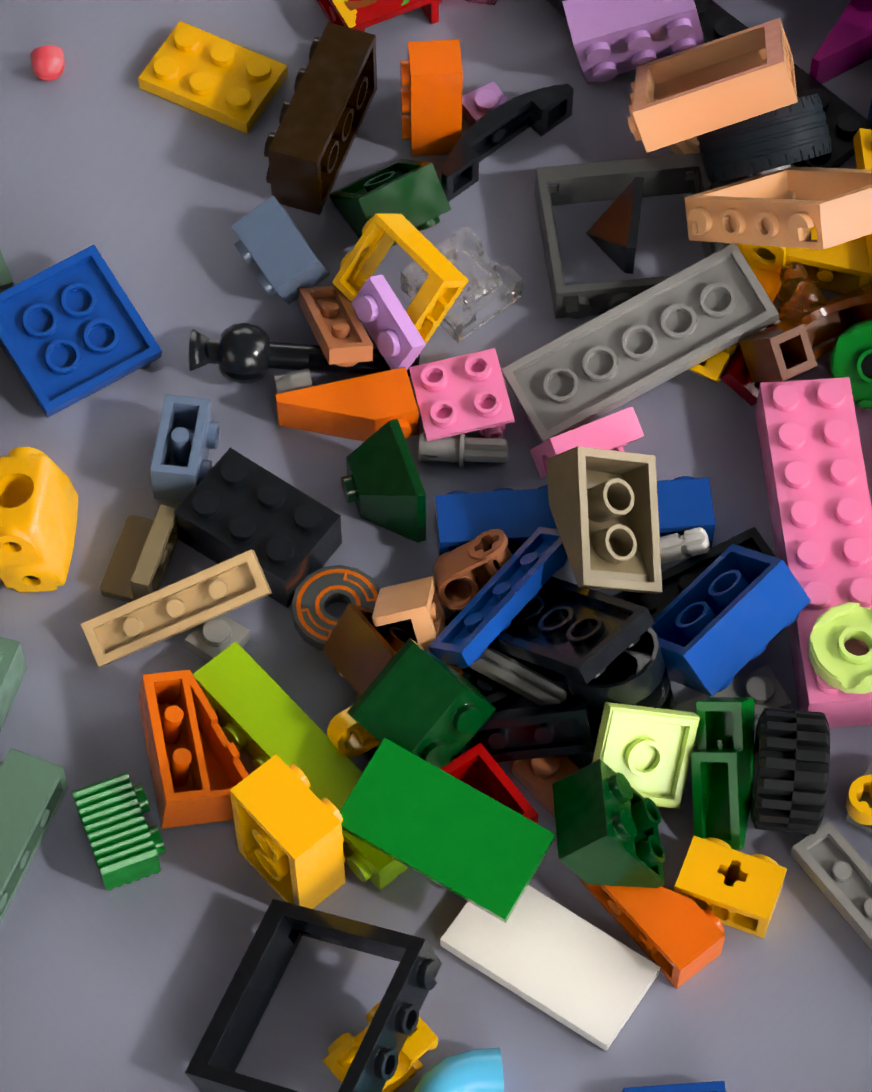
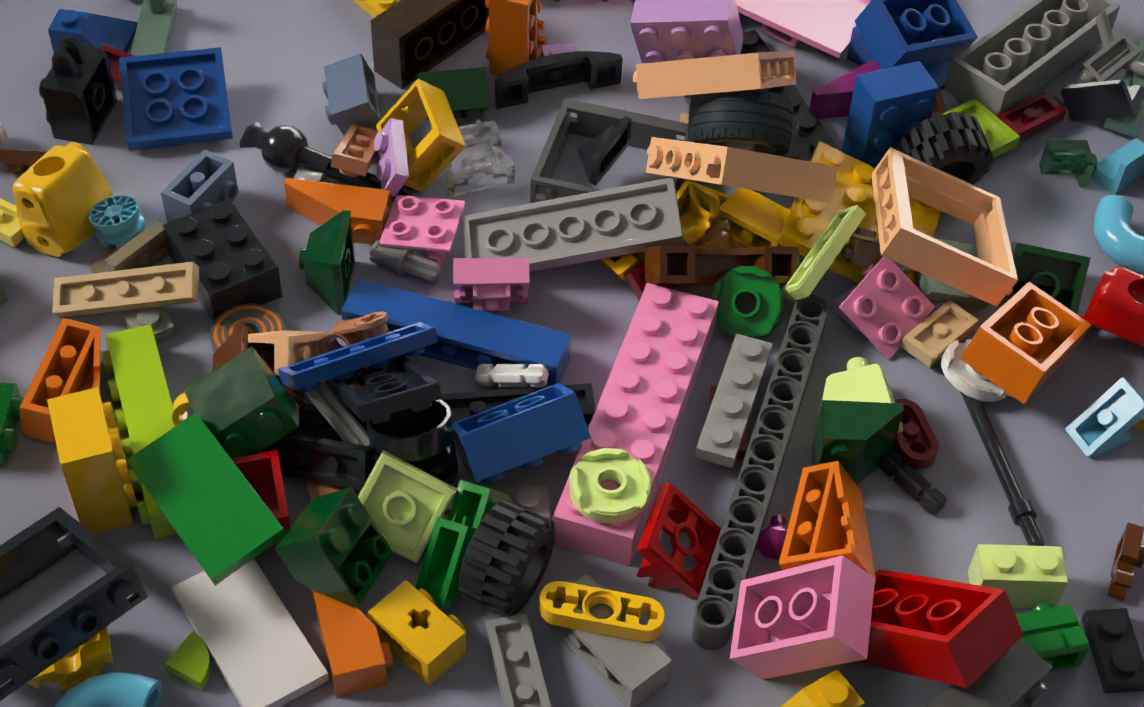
camera: 20 degrees right, 10 degrees down
(92, 511) = (116, 220): none -> medium azure wheel
(509, 1011) = (191, 661): none -> lime tile
(607, 517) = (465, 326): dark tan slope -> none

